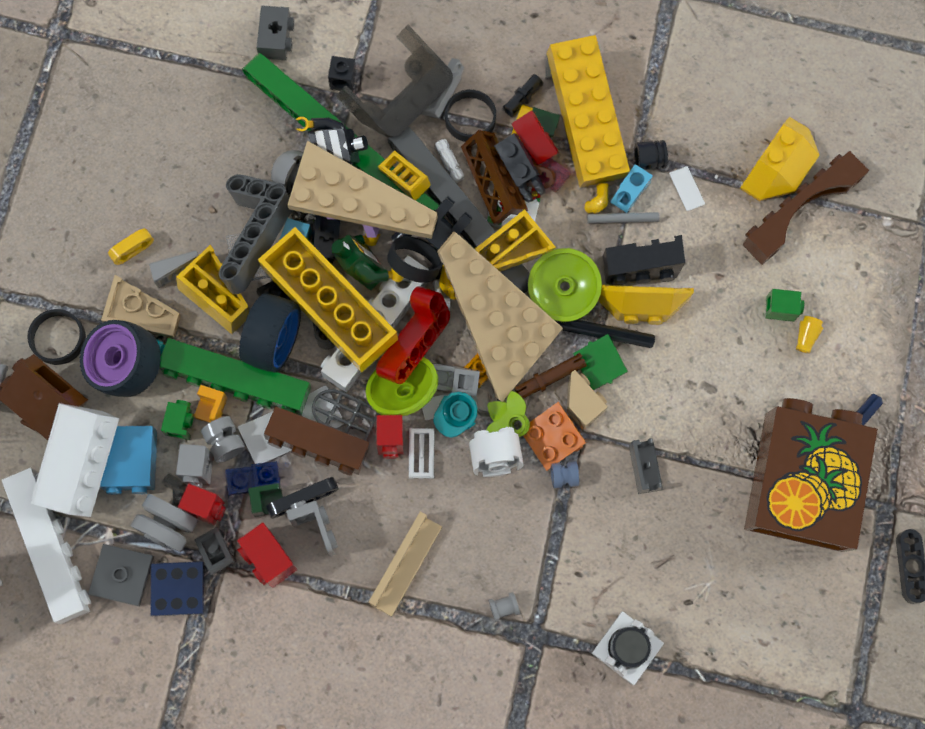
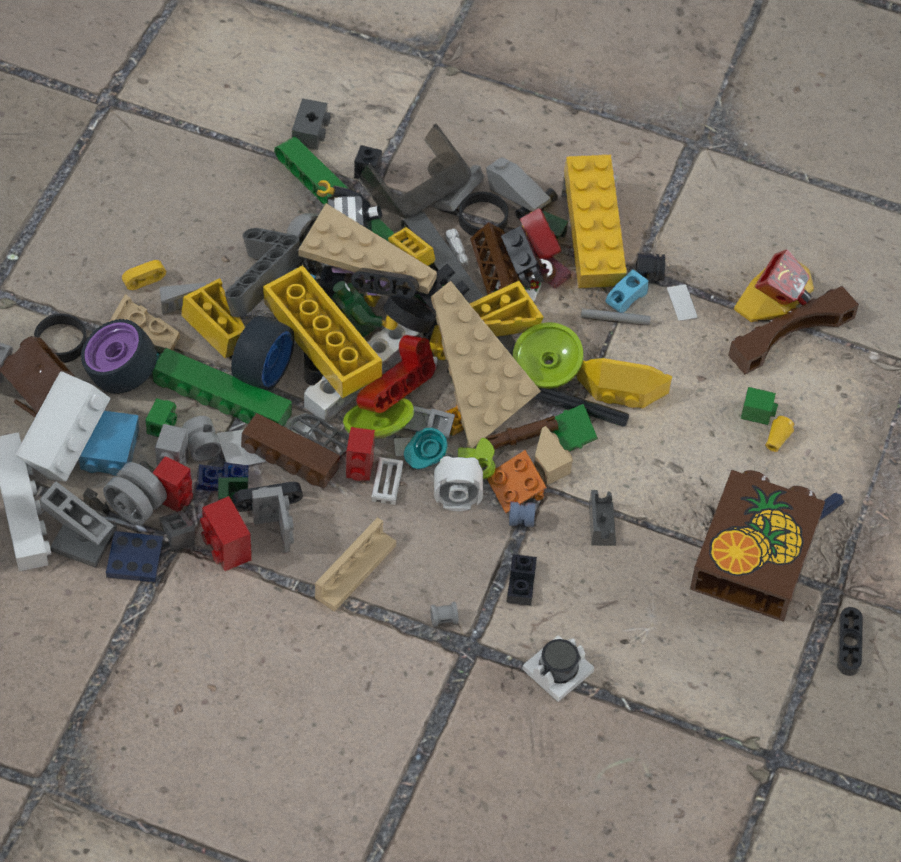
camera: 10 degrees right, 20 degrees down
(107, 560) = (75, 513): none -> light grey slope
(124, 532) = (93, 502): none -> clear smoke tile
(210, 404) = (195, 405): light orange panel -> none
(375, 239) = (394, 278): none -> black beam
(500, 79) = (513, 183): none -> light grey slope
(575, 549) = (521, 579): none -> black slope
(599, 202) = (594, 300): yellow arm -> none
(644, 263) = (636, 347): black wedge -> none
(794, 157) = (784, 279): none -> torso

